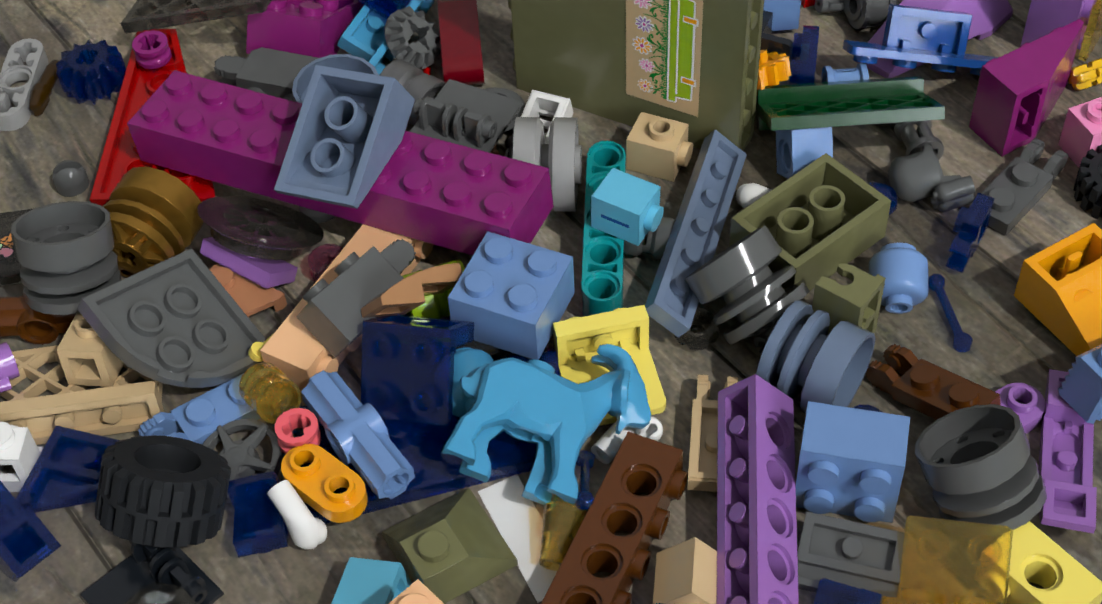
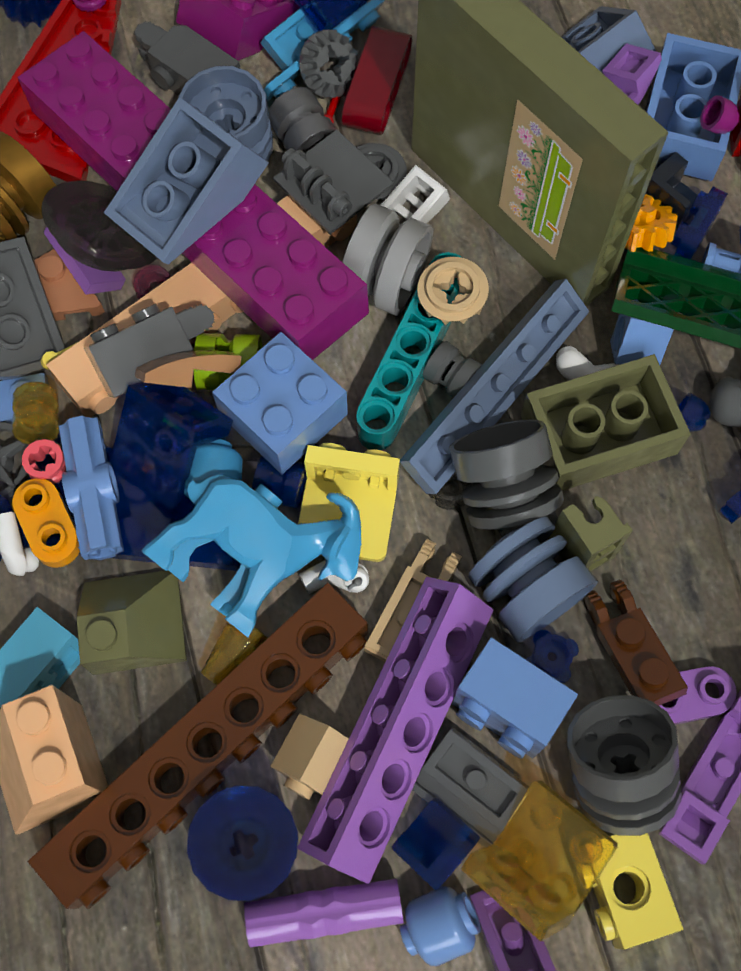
camera: 20 degrees right, 20 degrees up
(521, 529) = (202, 628): white sticker -> none
(585, 462) = (258, 635): clear blue hinge -> none
(626, 206) = (432, 343): medium azure brick -> none
(635, 152) = (440, 276): none -> tan gear
(658, 147) = (510, 272): tan brick -> none
(905, 276) = (663, 510): medium blue head -> none
(962, 341) = (693, 597): clear blue hinge -> none

